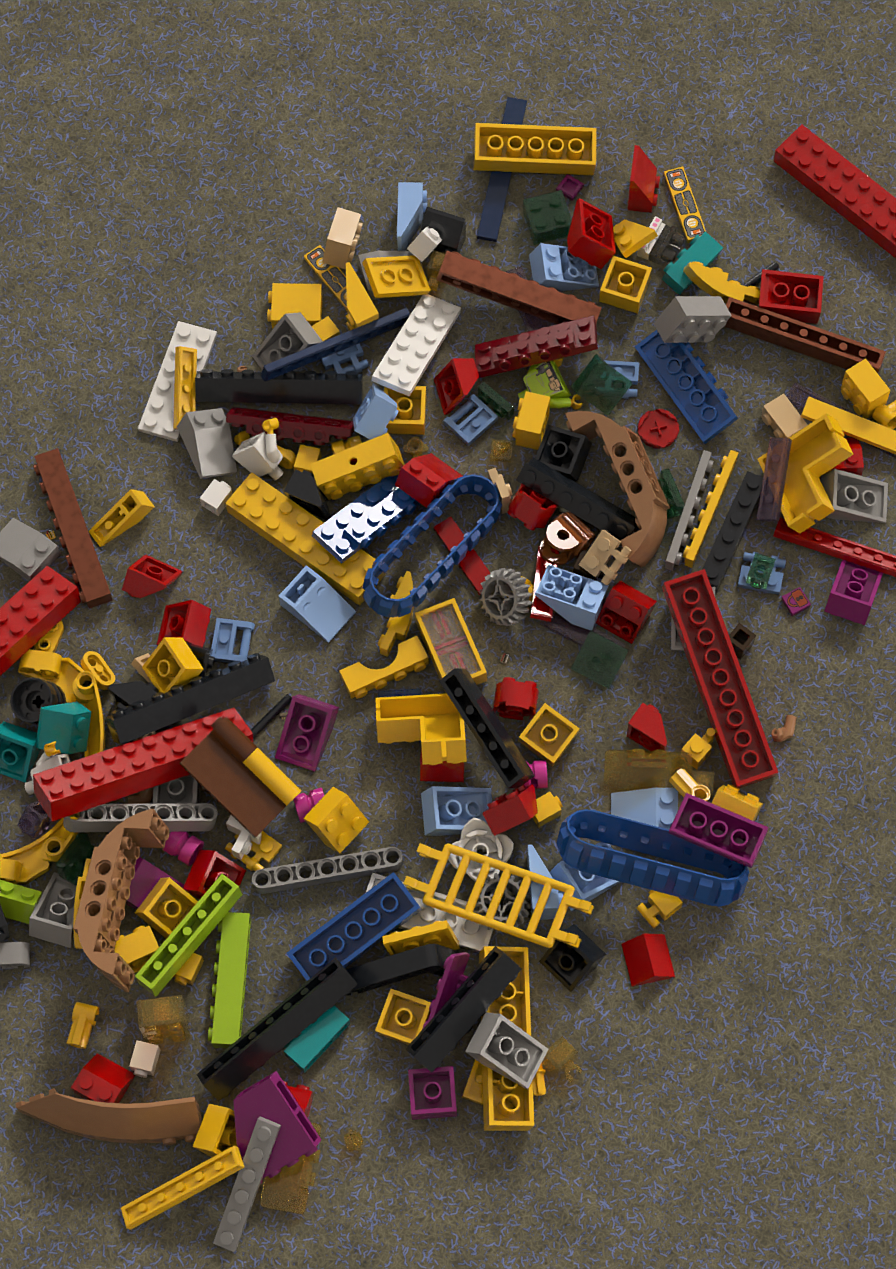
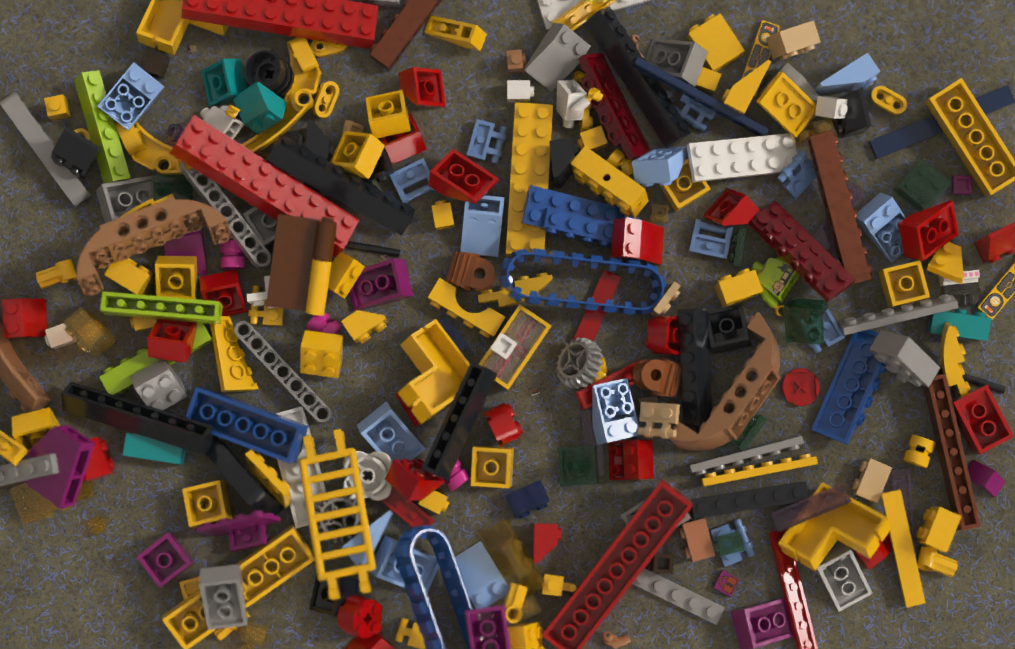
camera: 50 degrees right, 15 degrees up
(154, 619) = (388, 114): none -> yellow brick
(187, 482) = (515, 61): none -> medium nougat brick
(226, 947) = (171, 340): none -> red slope
(237, 559) = (481, 140): none -> medium blue plate
(259, 988) = (159, 385): none -> light grey brick
(261, 591) = (461, 178): none -> red slope
(275, 748) = (344, 274): none -> yellow brick
(278, 910) = (230, 361): none -> yellow wing
(282, 634) = (442, 215): none -> yellow brick
(333, 765) = (362, 324): none -> yellow slope
(346, 643) = (464, 267): none -> dark orange piece
(444, 646) = (503, 346): none -> white tile
(450, 198) = (888, 99): none -> yellow plate
(463, 1009) = (232, 546): black brick -> none
(465, 310) = (800, 178): none -> medium blue plate
(501, 450) = (701, 279): clear yellow tile -> none
(540, 837) = (407, 509): none -> red plate
(600, 724) = (527, 499): none -> clear blue brick
(610, 940) = (360, 616): none -> red brick
(646, 310) = (905, 312): none -> light grey plate
(739, 599) = (697, 540): none -> nougat brick
(782, 362) = (918, 458): none -> yellow wheel
(782, 648) = (679, 596): none -> light grey plate
(846, 324) = (985, 478): none -> magenta slope

